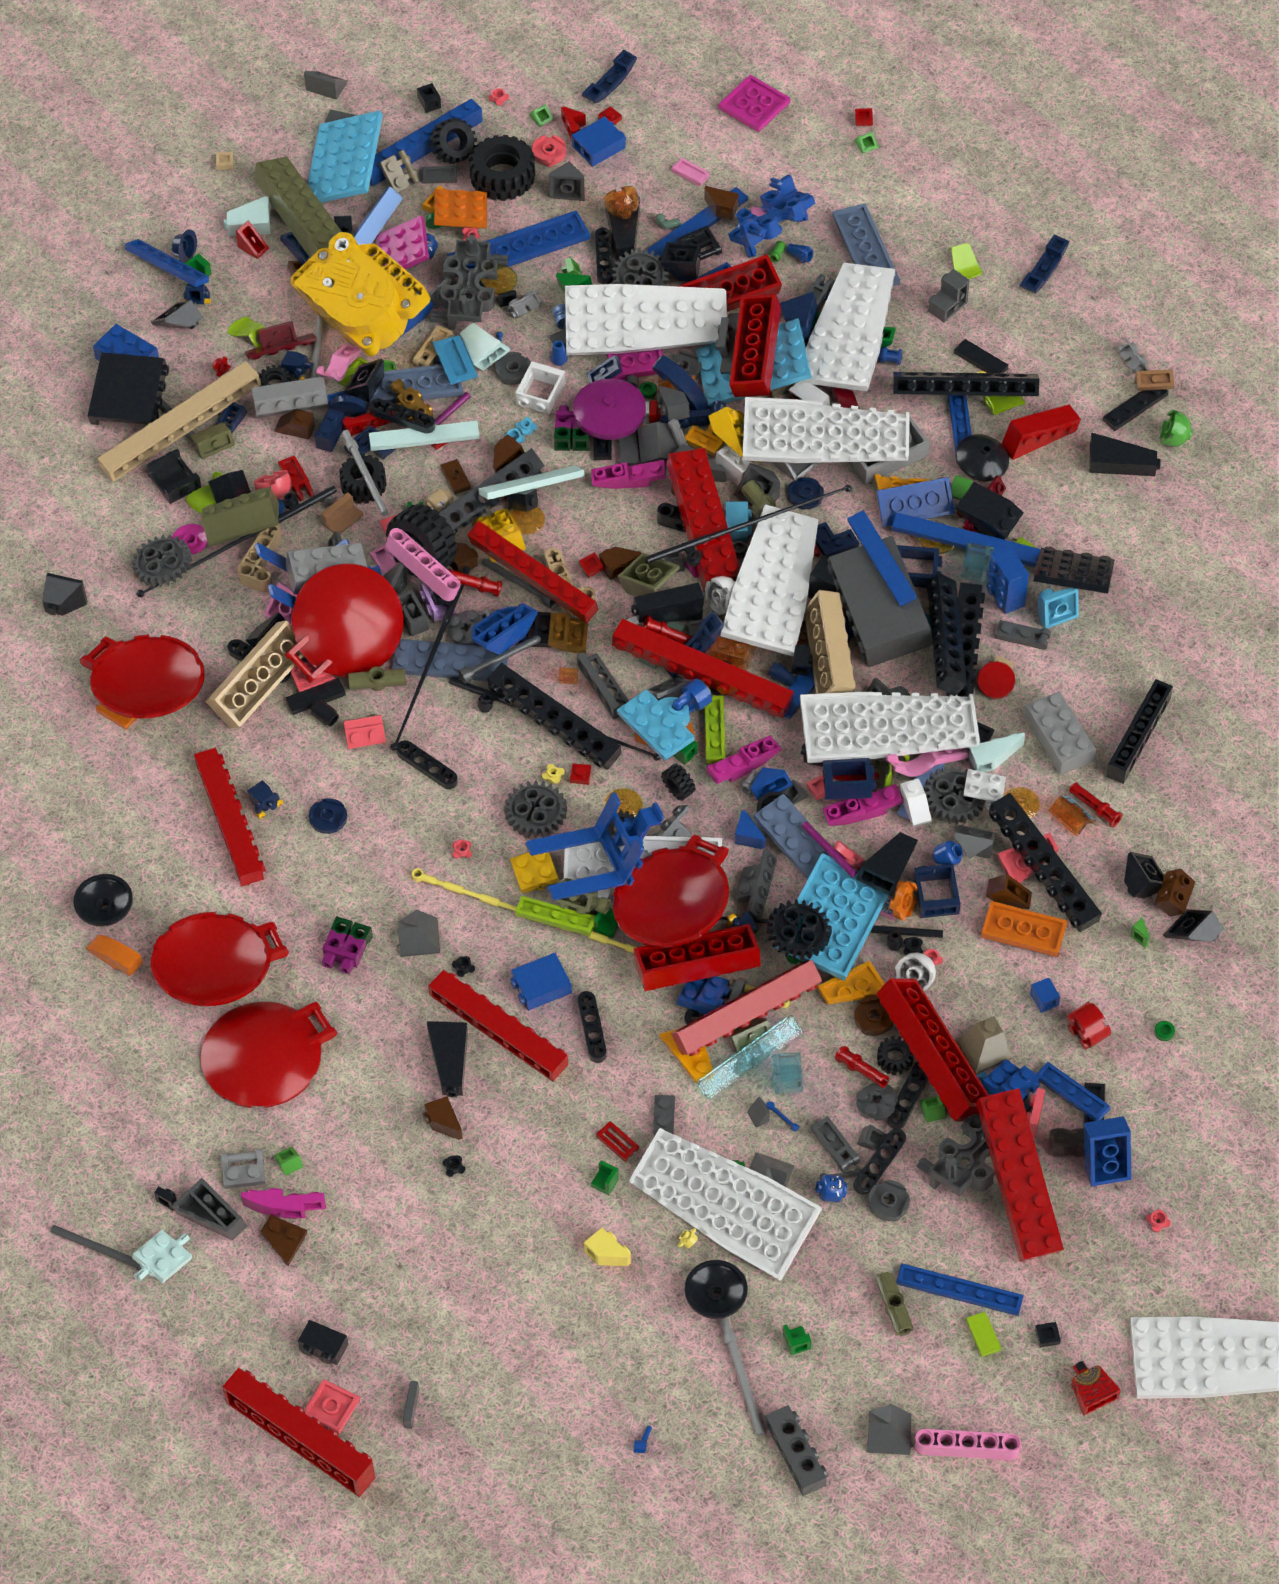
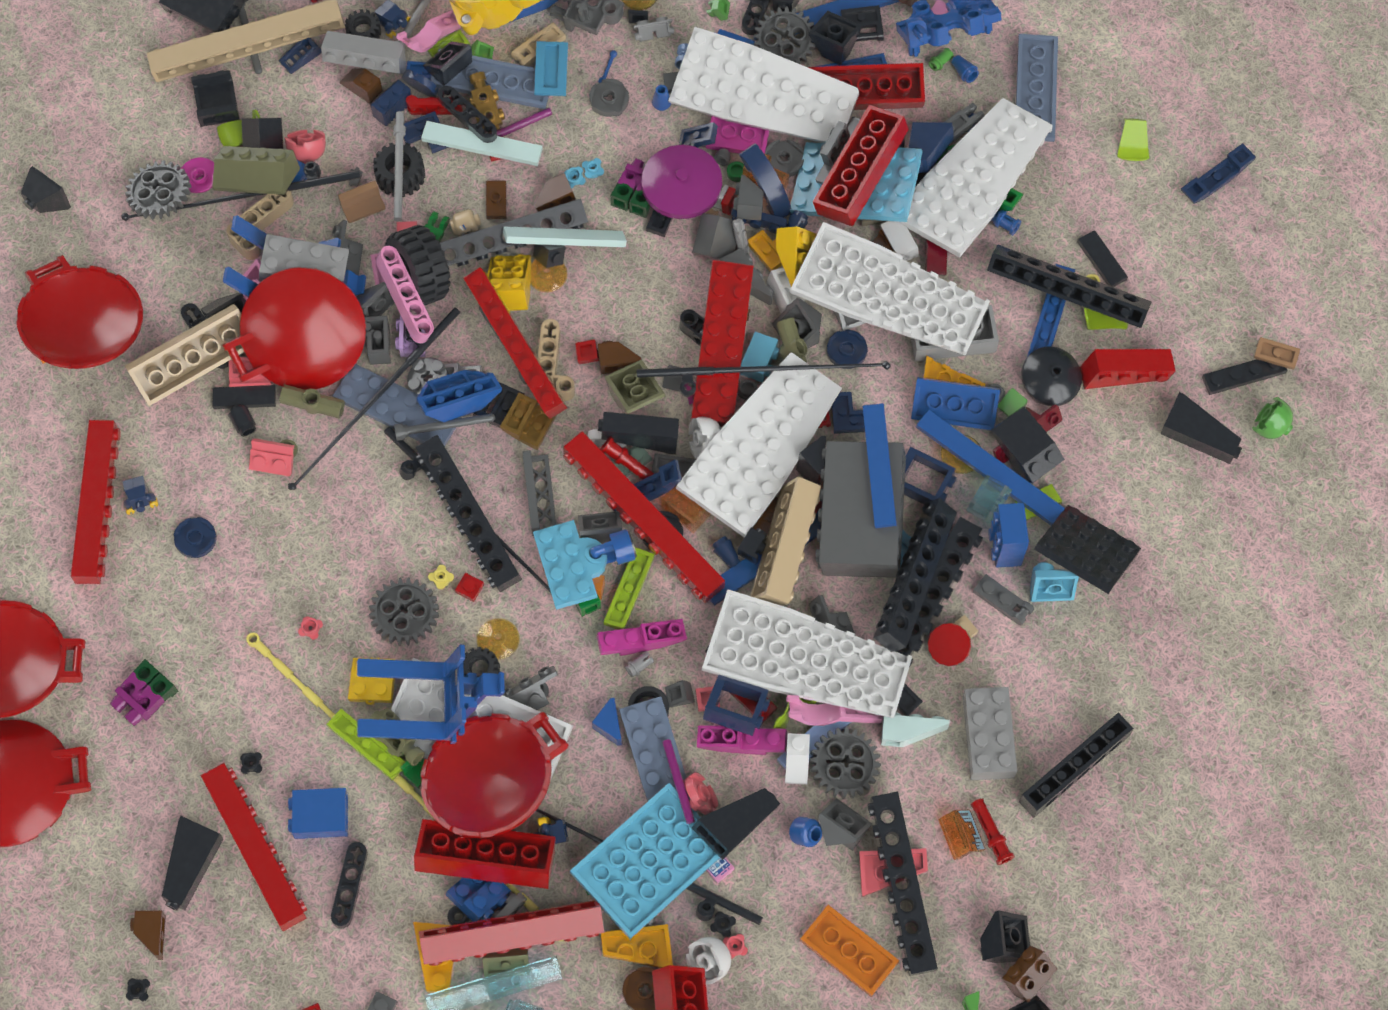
camera: 20 degrees right, 10 degrees up
(213, 440) = (271, 71): olive panel -> none
(297, 476) = (335, 141): red hinge -> none
(418, 934) = (222, 709): dark grey slope -> none
(427, 764) = (319, 517): black beam -> none
(464, 557) = (459, 295): reddish brown slope -> none
(482, 346) = (586, 62): light aqua slope -> none
(482, 584) = (464, 334): red pin -> none
(538, 372) = (635, 114): white window -> none
(568, 676) = (506, 470): clear orange tile -> none
(572, 279) = (713, 22): green slope -> none
(622, 476) = (666, 262): dark pink slope -> none
(629, 449) = (685, 235): dark grey tile -> none
(678, 782) = (561, 638): black tyre -> none
(756, 884) = (590, 787): dark grey bracket -> none
(770, 781) = (655, 674): blue slope -> none
(780, 925) = (618, 878): black gear -> none
(904, 901) = (733, 870): orange plate -> none
(940, 907) = (770, 890): dark blue window -> none
(951, 296) = (1100, 177): dark grey brick -> none
(984, 786) = (879, 768): white hinge -> none
(1009, 892) = (851, 902): reddish brown slope -> none
(1031, 801) = (917, 807): clear yellow dish -> none
(1130, 351) = (1266, 308): light grey hinge -> none

